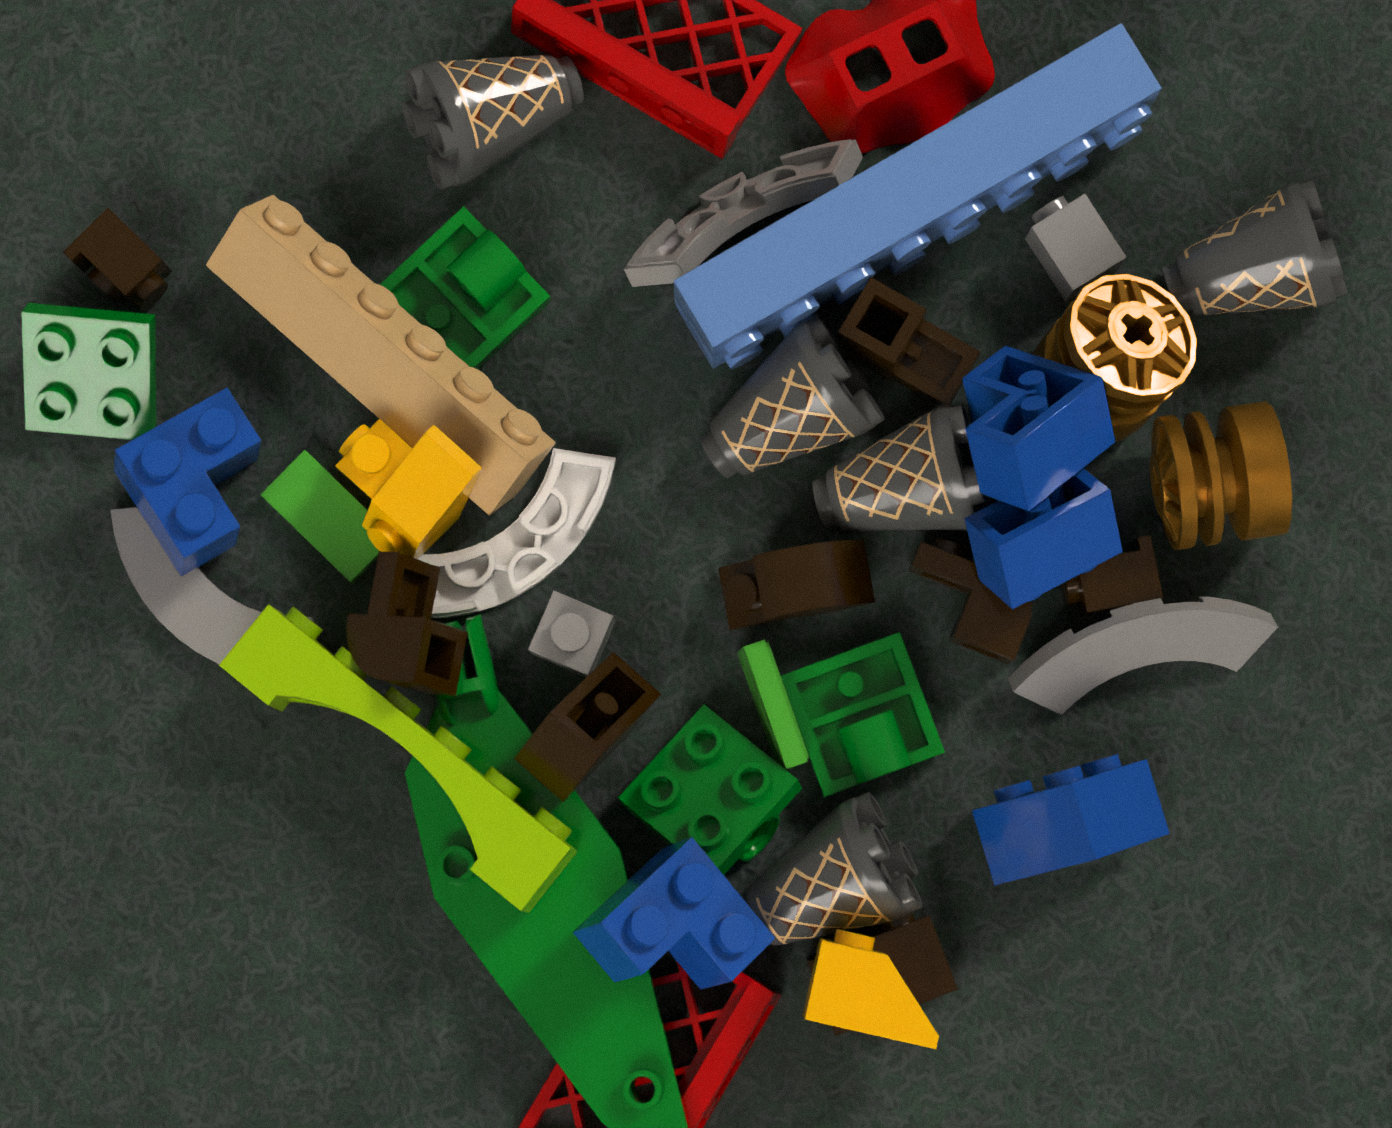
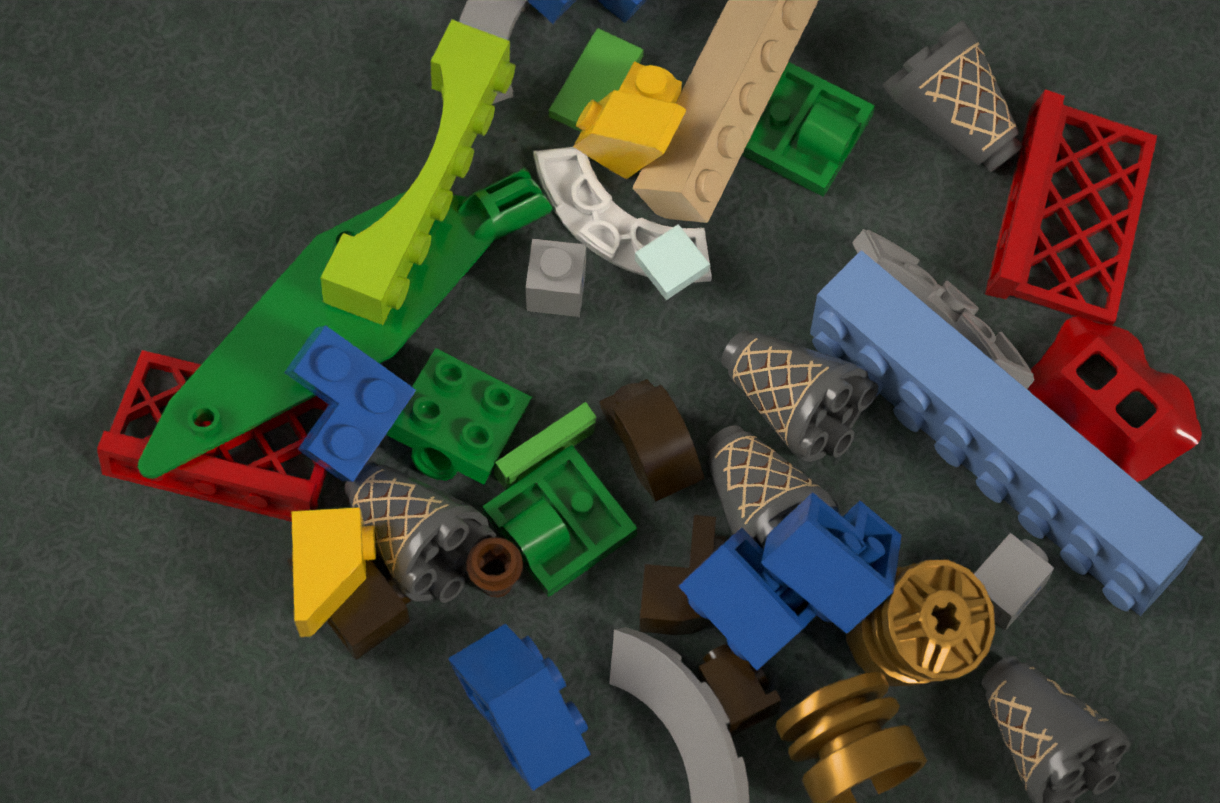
camera: 70 degrees right, 15 degrees down
(397, 635) = (516, 142): dark brown brick -> none
(587, 726) = (484, 300): dark brown brick -> none
(591, 497) = (672, 262): none -> light aqua tile
(897, 343) = (879, 456): dark brown brick -> none
(929, 804) = (490, 556): none -> reddish brown cone

